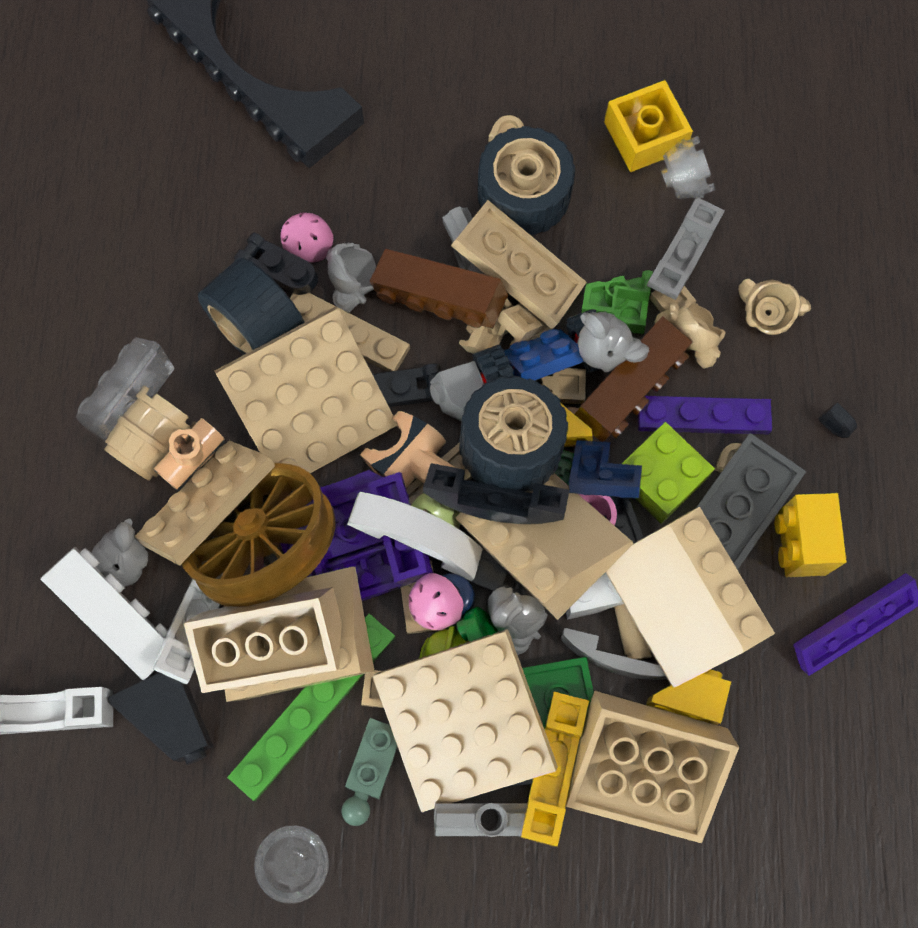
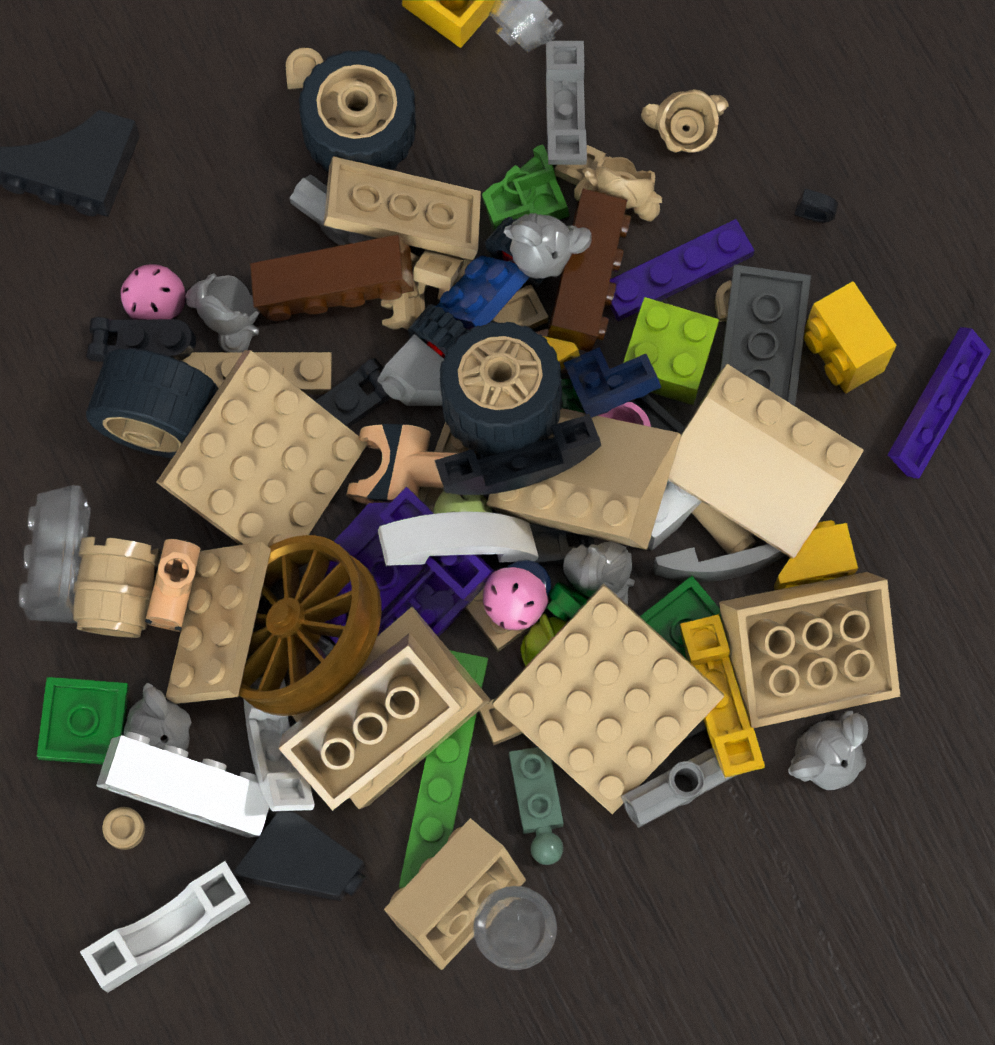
camera: 30 degrees left, 0 degrees up
(55, 617) = (123, 828): none -> tan tile
(72, 518) = (81, 719): none -> green plate
(247, 810) = (443, 898): none -> tan slope
(620, 853) = (825, 746): none -> light grey hair

